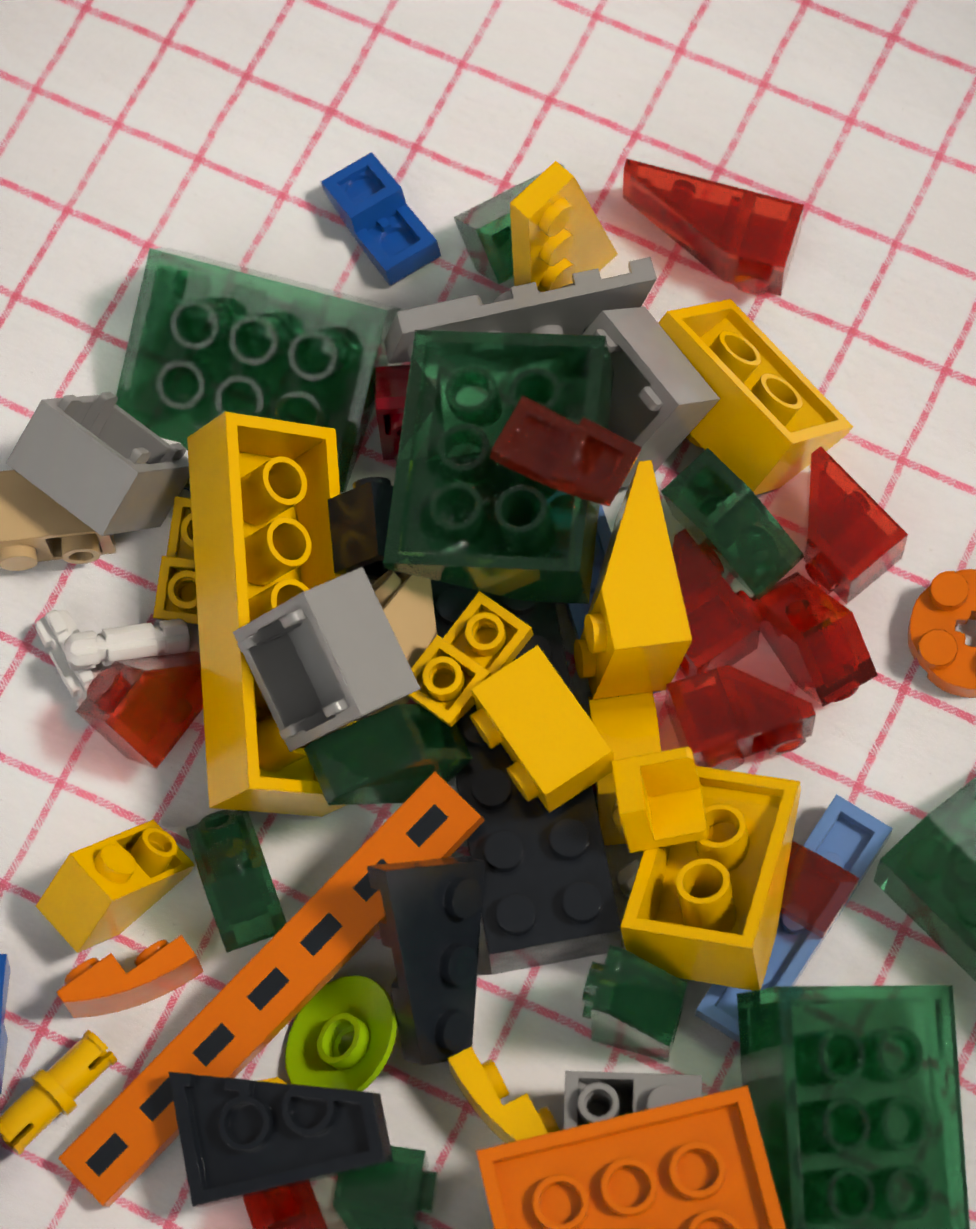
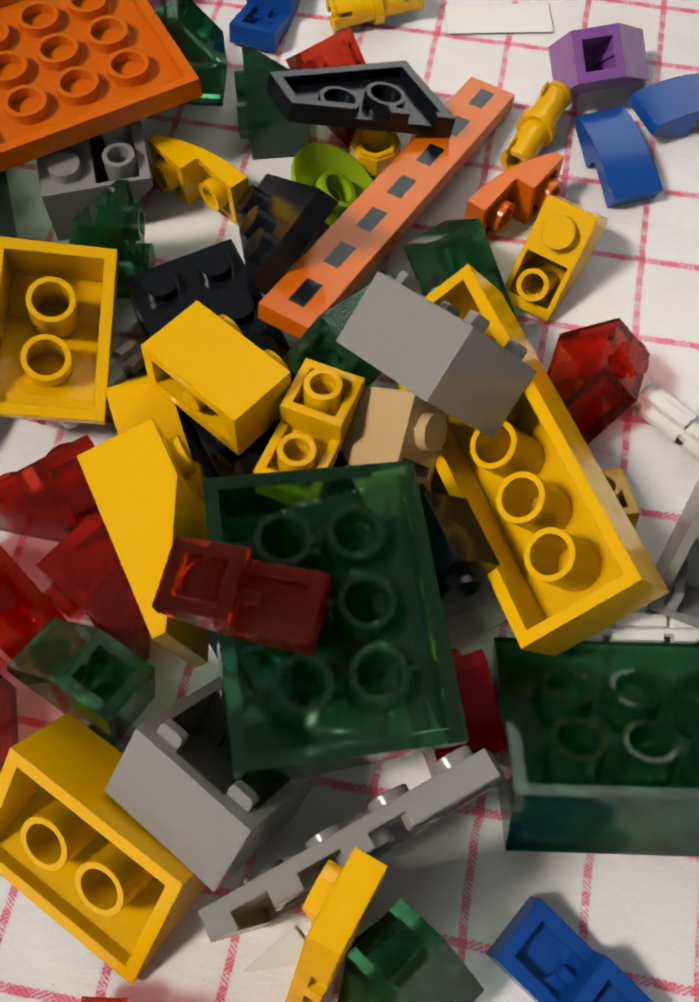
camera: 160 degrees right, 5 degrees down
(126, 642) = (638, 425): white axle -> none
(660, 799) = (101, 353): yellow panel -> none

